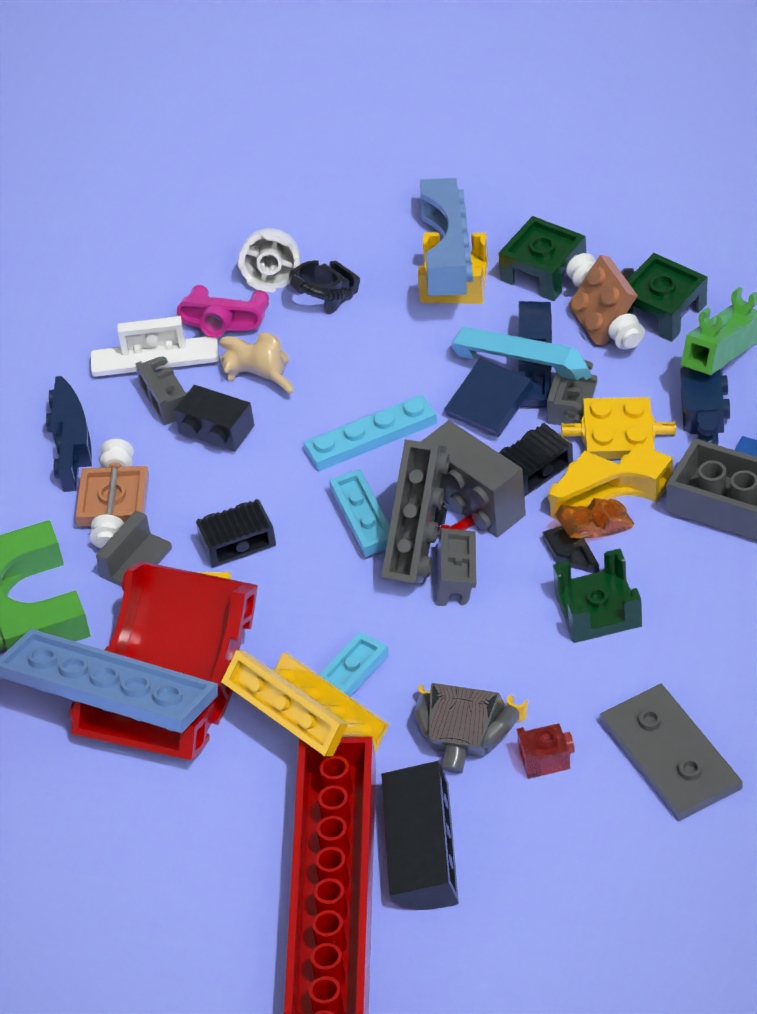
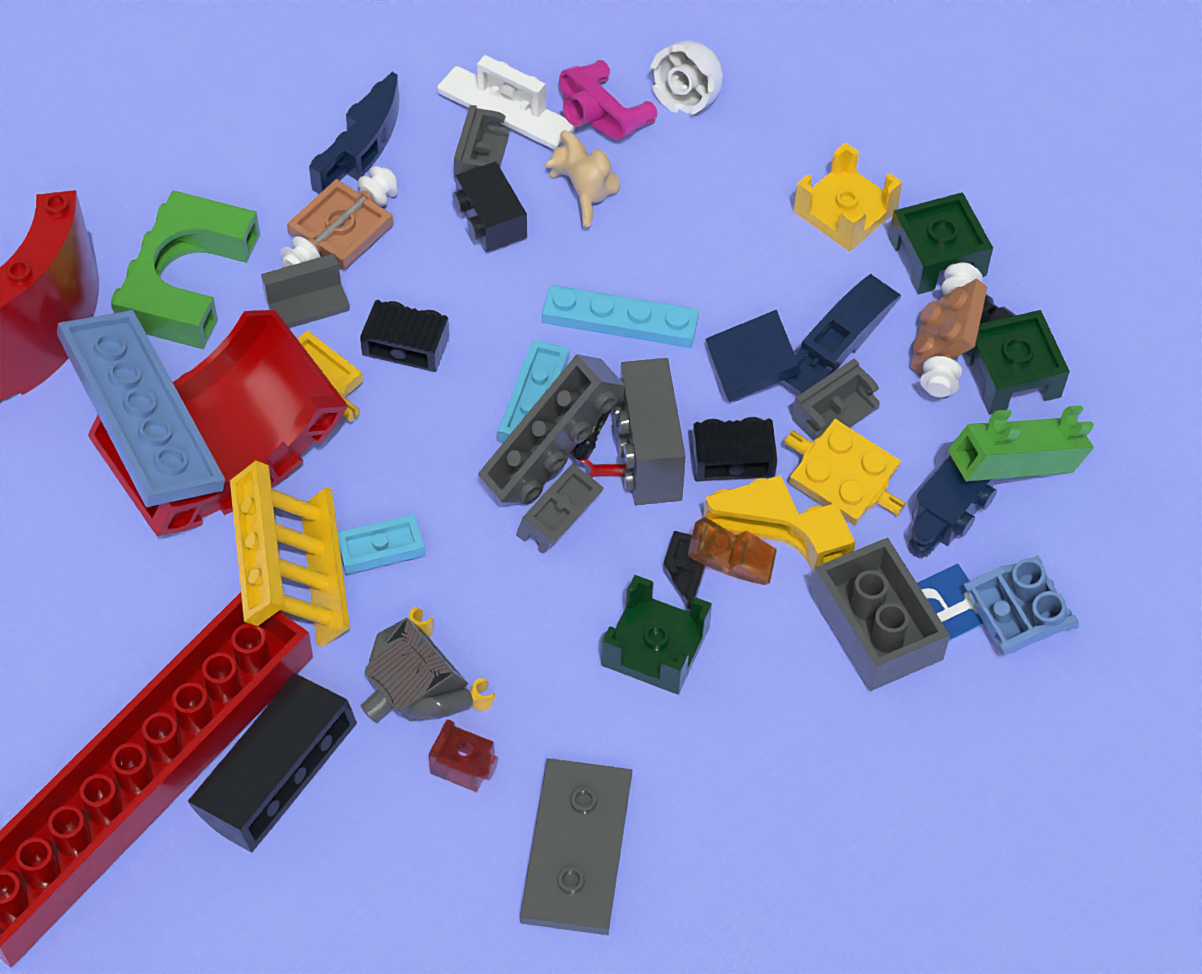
camera: 30 degrees right, 10 degrees up
(325, 282) = (735, 138): black piece -> none
(450, 260) = (825, 192): medium blue arch -> none
(564, 359) = (818, 332): medium azure piece -> none

